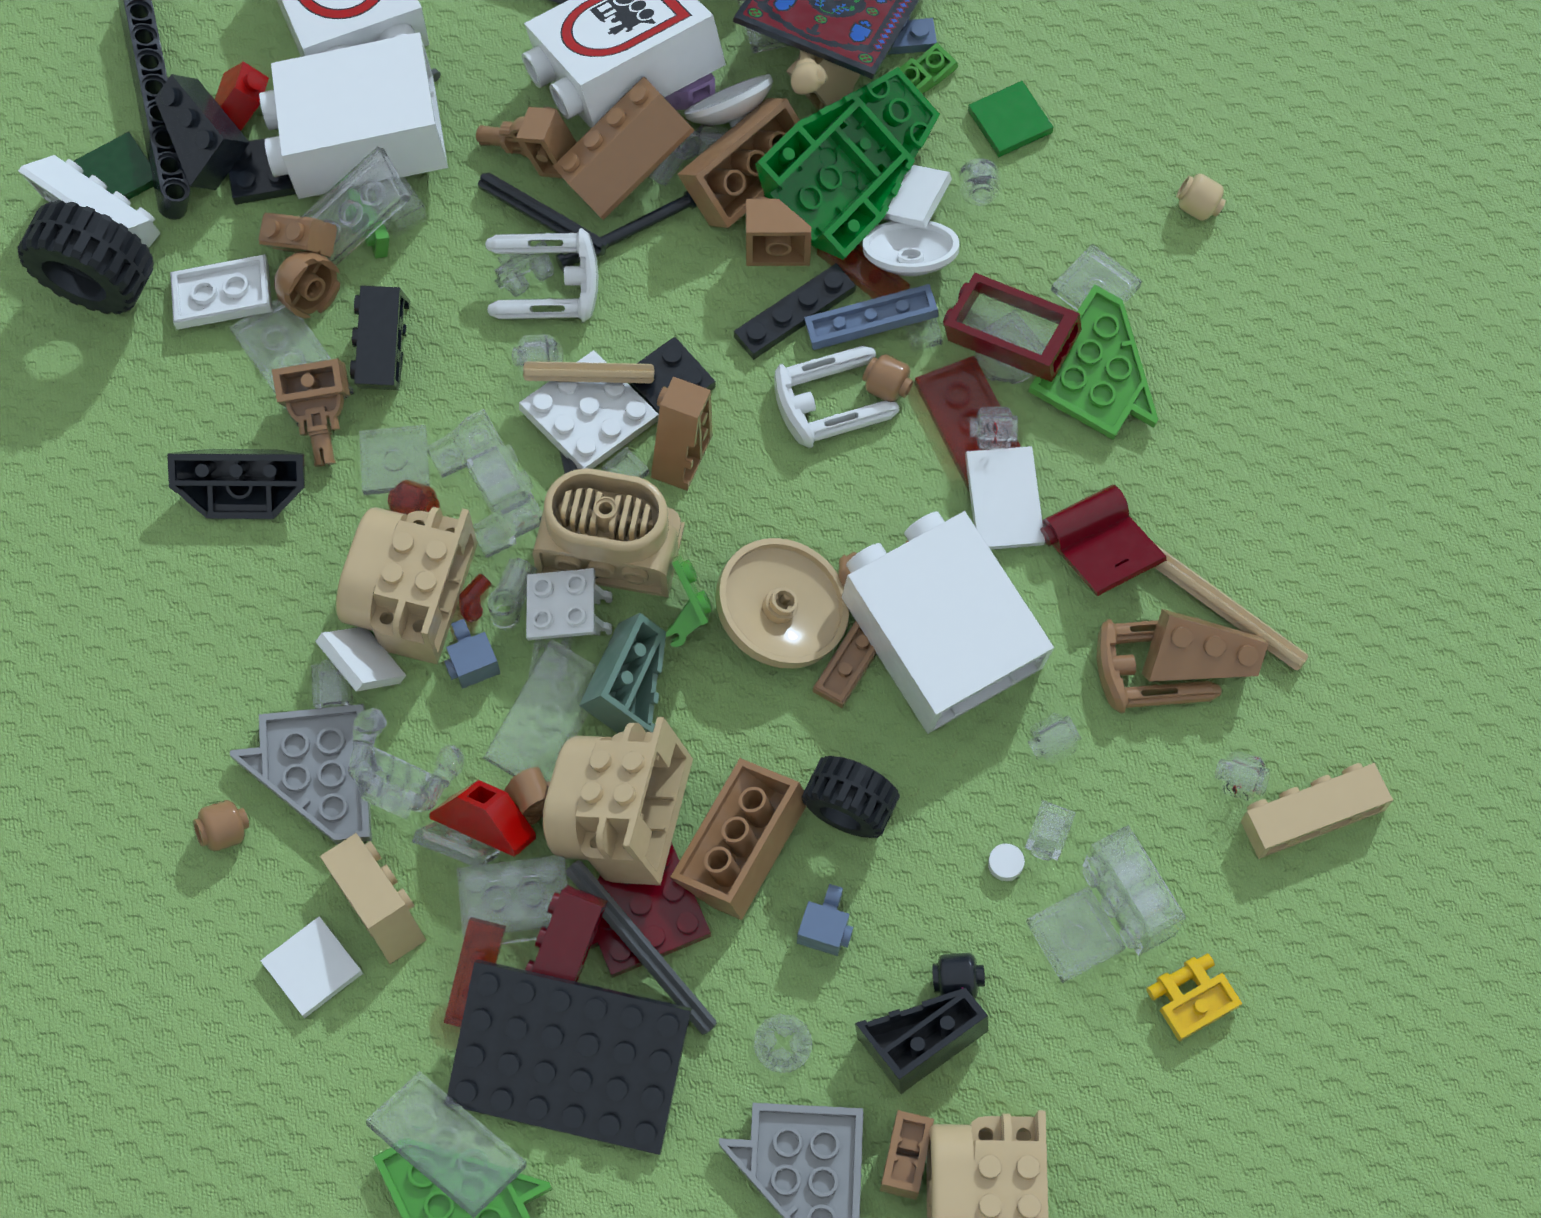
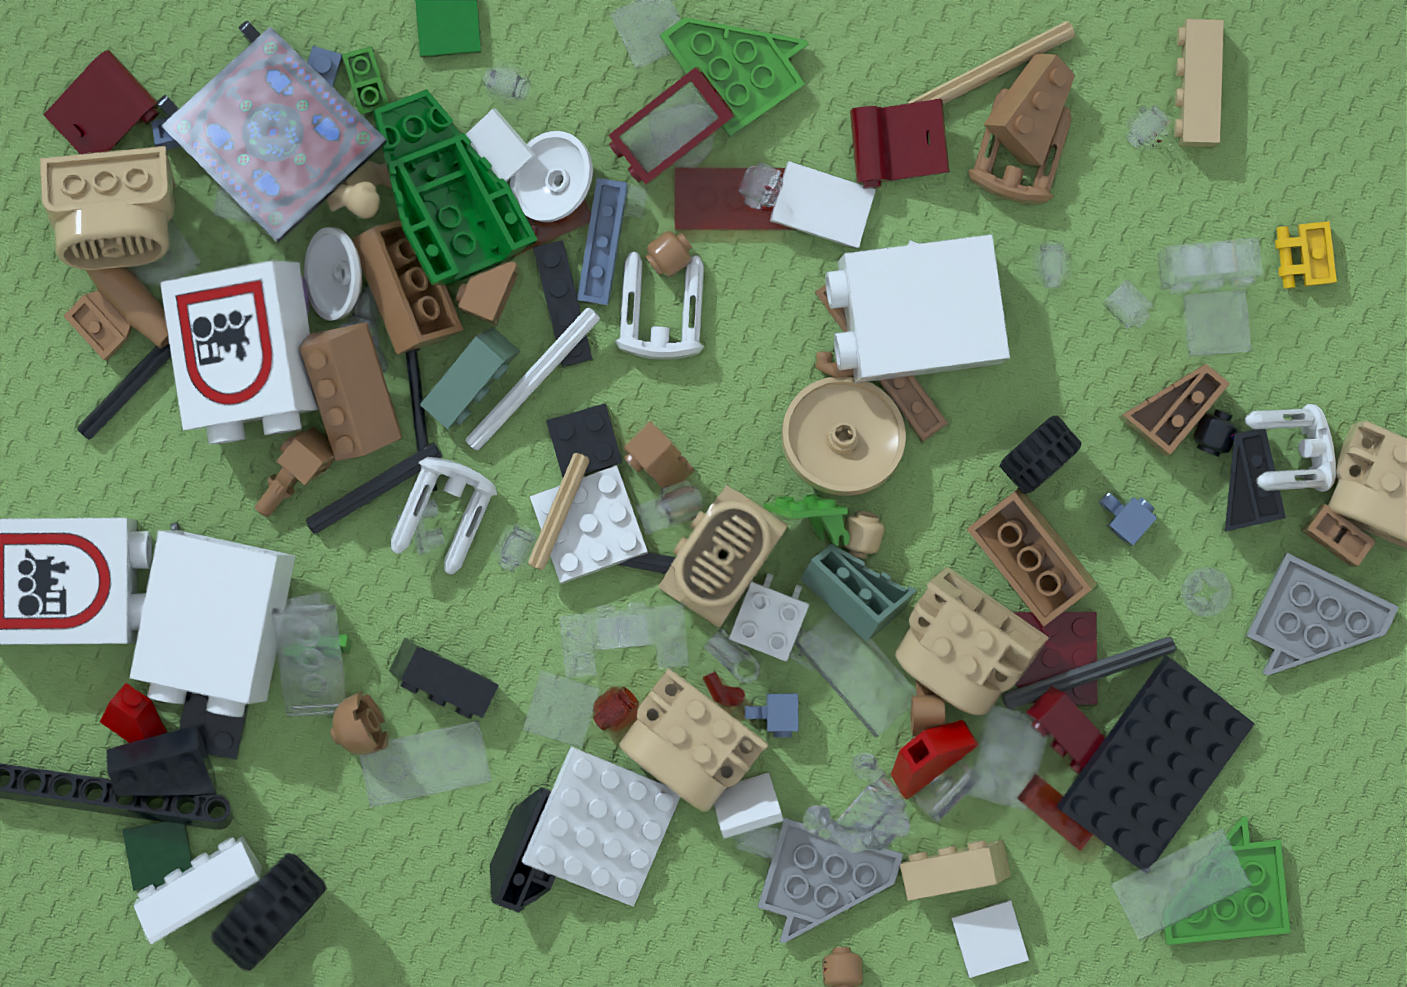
camera: 65 degrees left, 20 degrees up
(221, 292) = (331, 802): white tile -> none
(283, 529) = (601, 826): none -> white plate
(297, 234) = (310, 715): medium nougat brick -> none
(312, 397) = (481, 757): medium nougat brick -> none
(650, 469) = (679, 502): none -> clear head
(687, 252) = (469, 378): none -> sand green wedge
(690, 664) = (865, 533): none -> tan head
(709, 306) = (532, 379): none -> white axle
(964, 922) = (1176, 409): none -> medium nougat wedge
(994, 1094) = (1317, 446): none -> white piece
(1006, 862) = (1135, 350): white tile -> none

